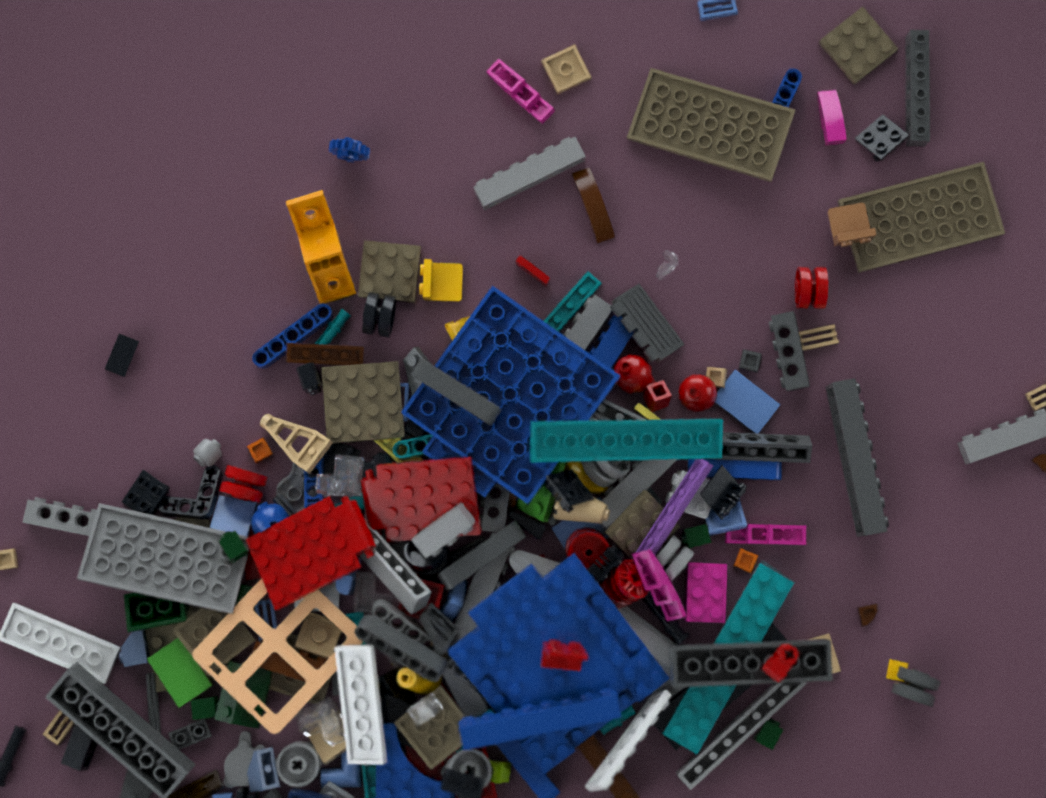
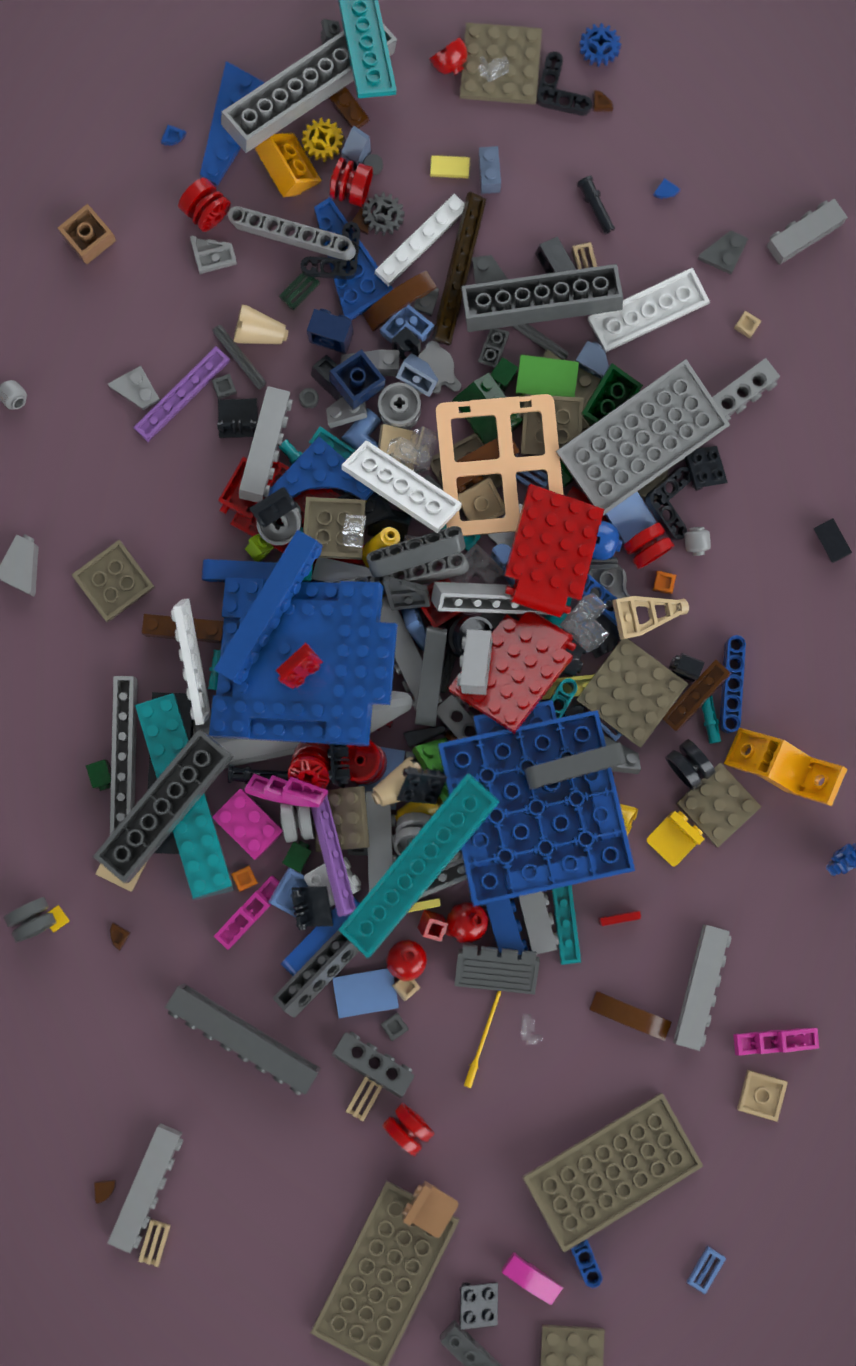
camera: 135 degrees right, 0 degrees up
(233, 546) = (607, 495): dark green brick -> none
(726, 282) = (474, 1065): none -> yellow piece
(779, 664) = (142, 825): red piece -> none

